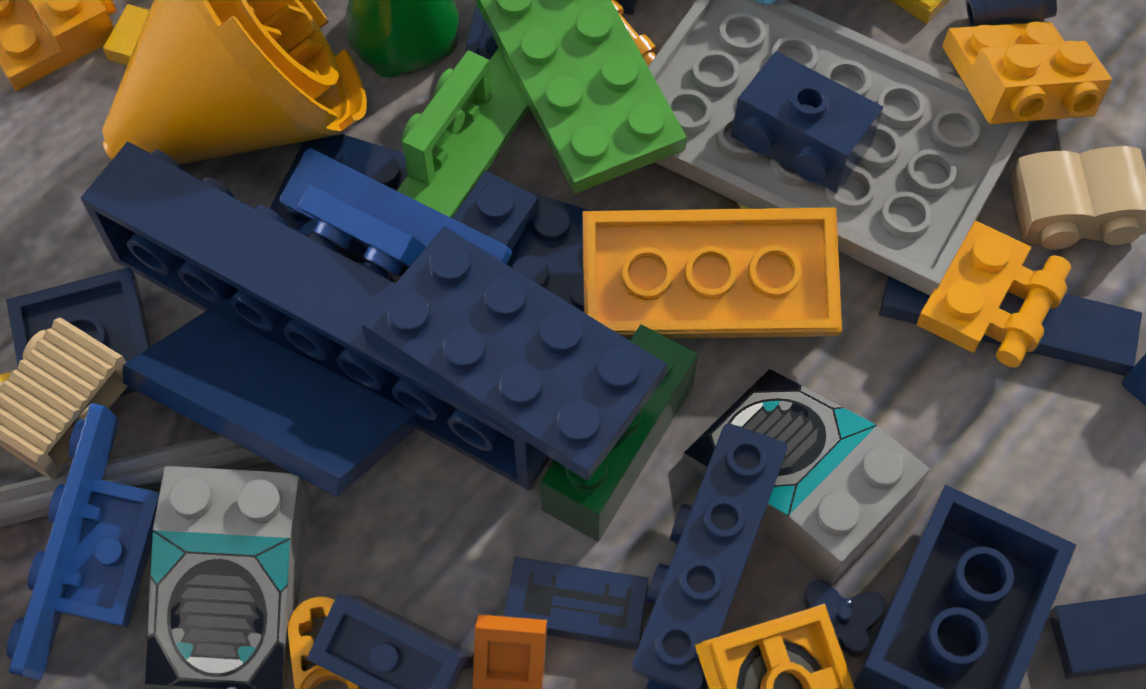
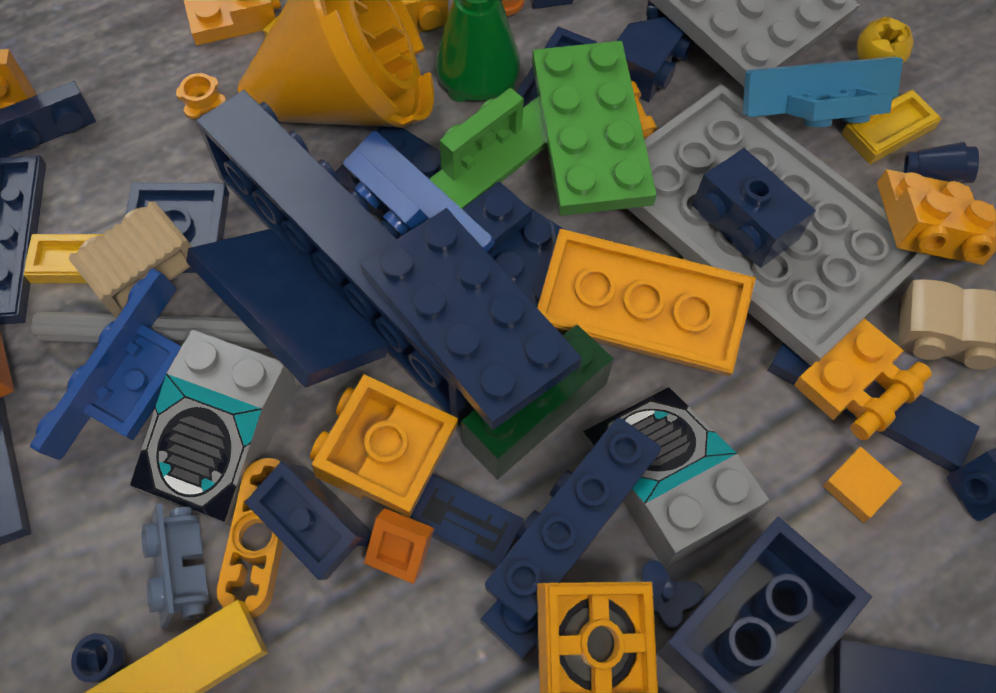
camera: 15 degrees right, 0 degrees up
(42, 148) = (199, 94): none -> light orange plate
(449, 540) = (382, 445): none -> light orange plate
(1028, 420) = (862, 484): none -> light orange tile

